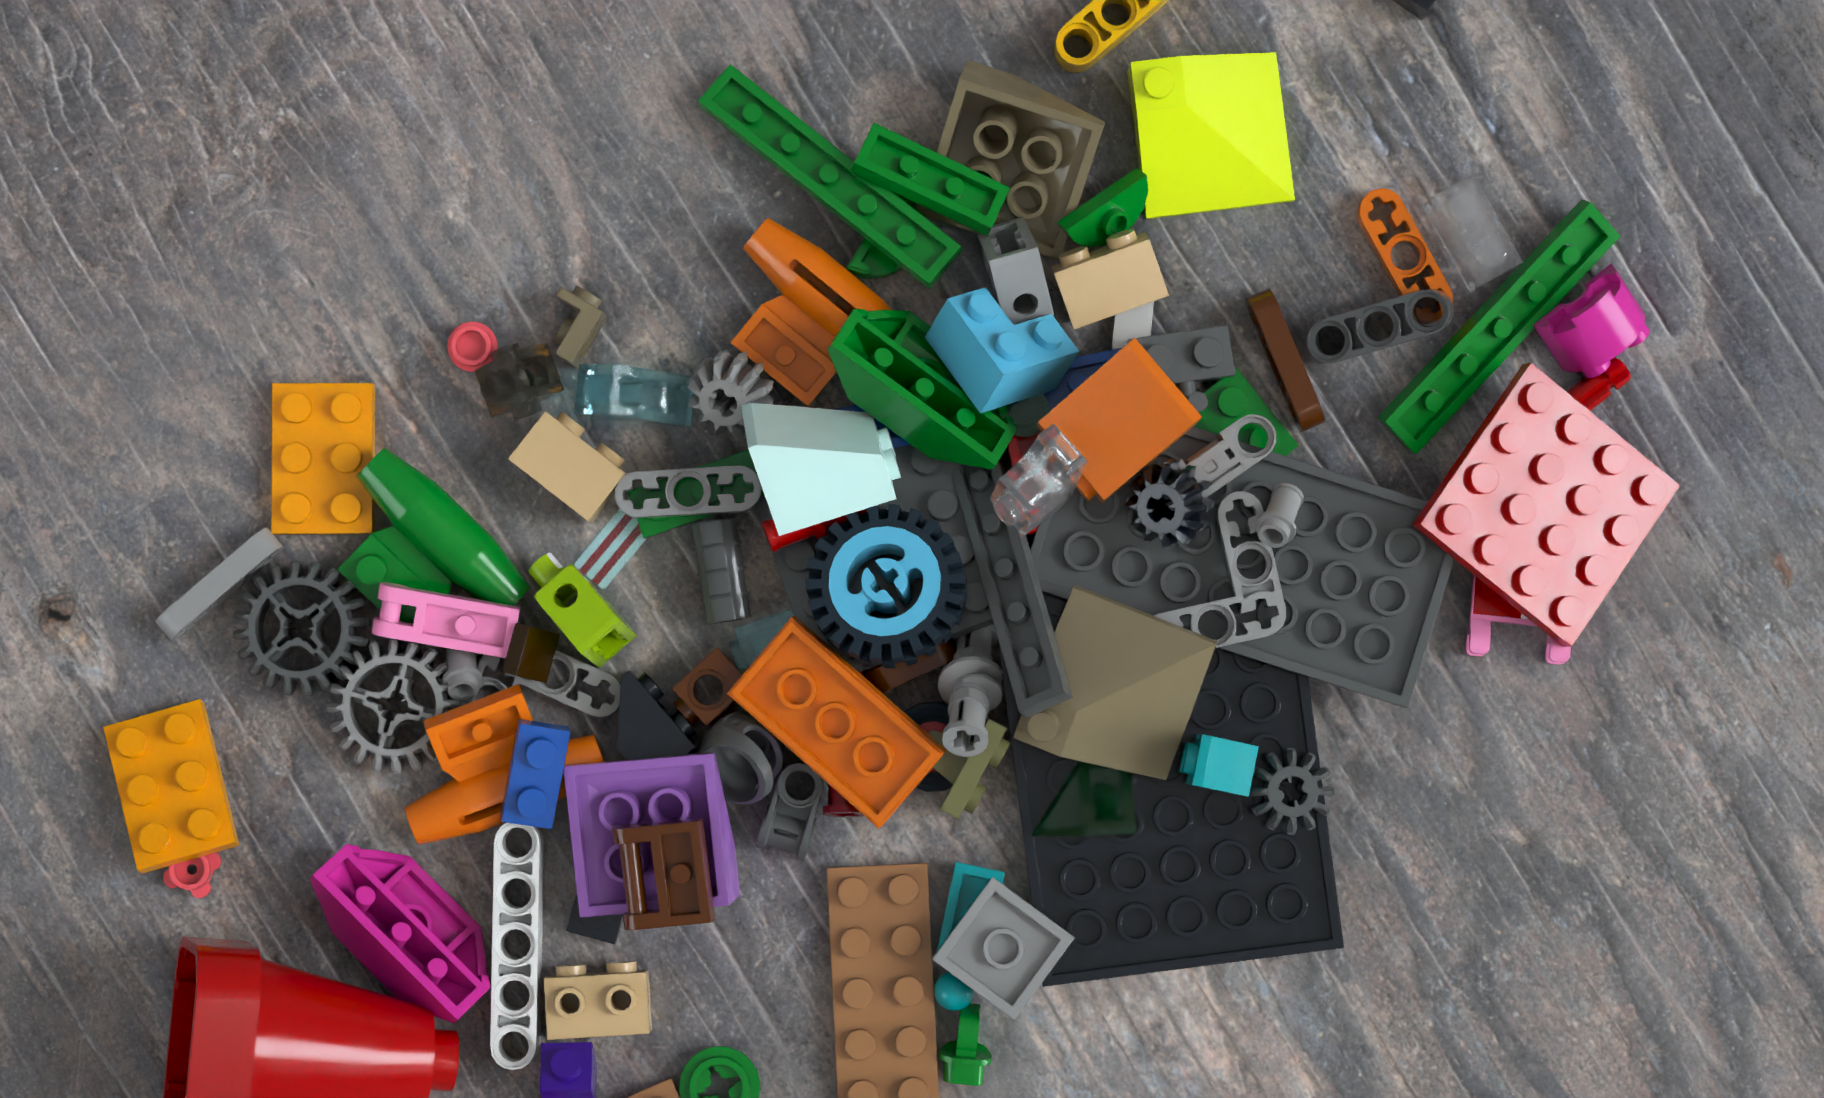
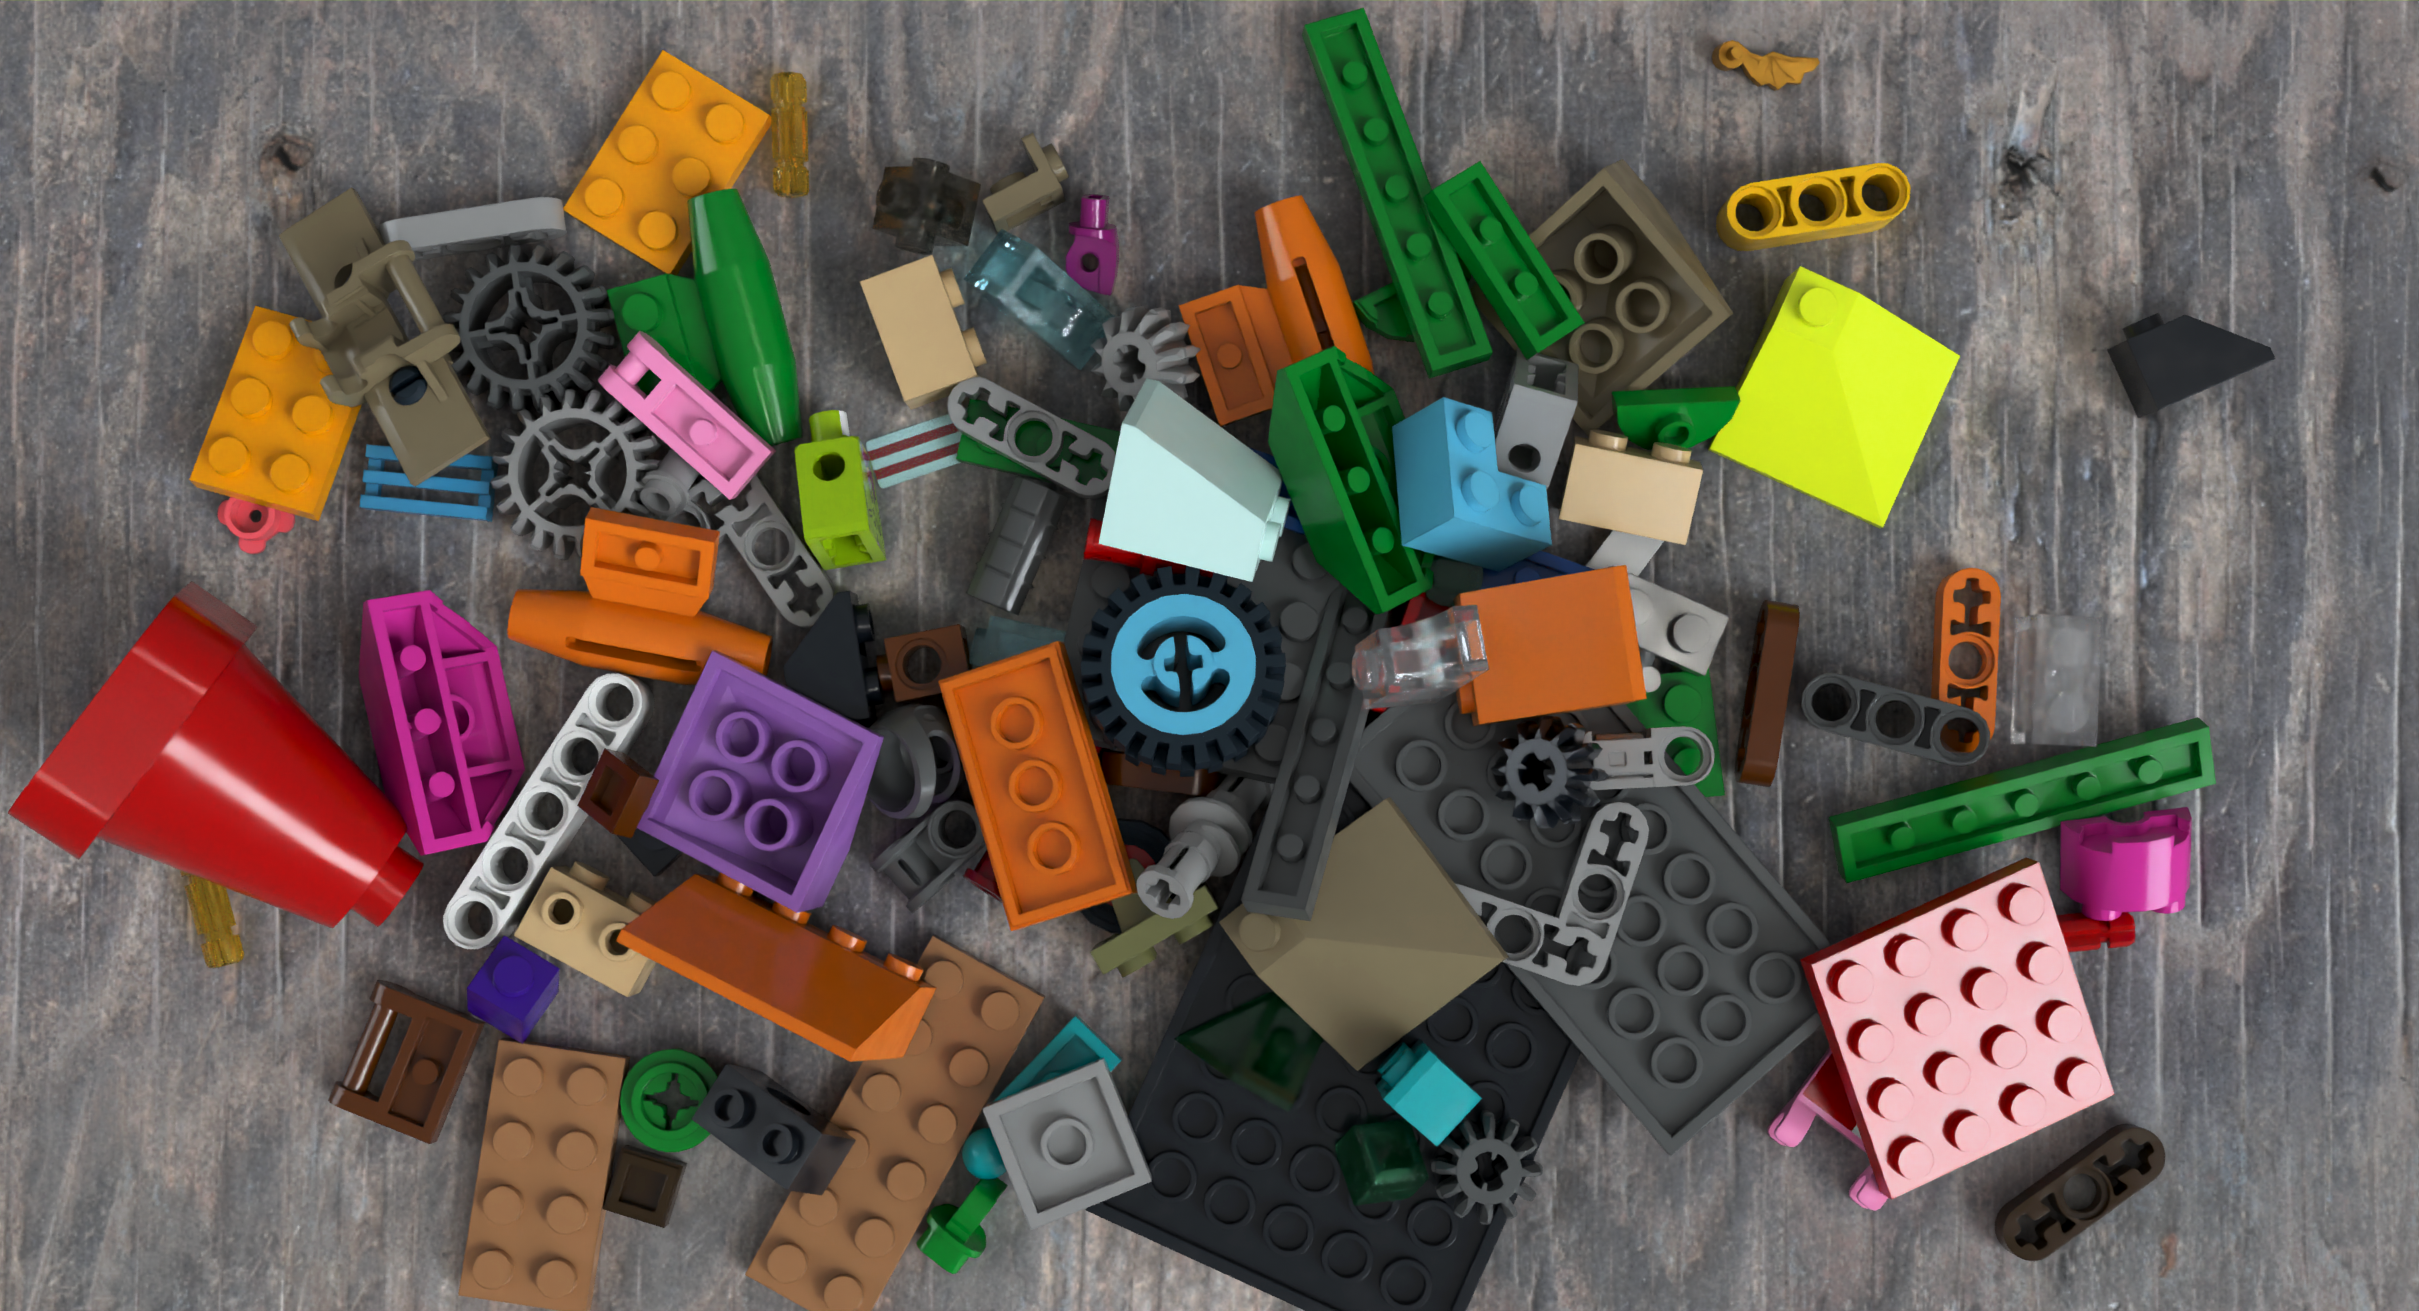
camera: 35 degrees right, 0 degrees up
(201, 708) = (366, 347): none -> dark tan piece
(257, 792) = (376, 477): none -> dark azure tile
(393, 388) = (789, 134): none -> clear yellow axle
(471, 346) = (899, 139): coral plate -> none
(530, 653) = (755, 506): dark brown tile -> none
(535, 774) = (677, 639): blue plate -> none
(559, 900) = (618, 793): none -> reddish brown plate
(645, 330) = (1096, 237): none -> magenta piece
(679, 872) = (763, 843): reddish brown plate -> none
(747, 945) = (784, 967): none -> orange slope
(802, 1061) = (773, 1130): none -> black brick
(1219, 831) = (1381, 1162): none -> clear green slope
(1277, 524) = (1653, 867): light grey pin -> none
(1695, 603) = (2109, 1152): none -> dark brown beam

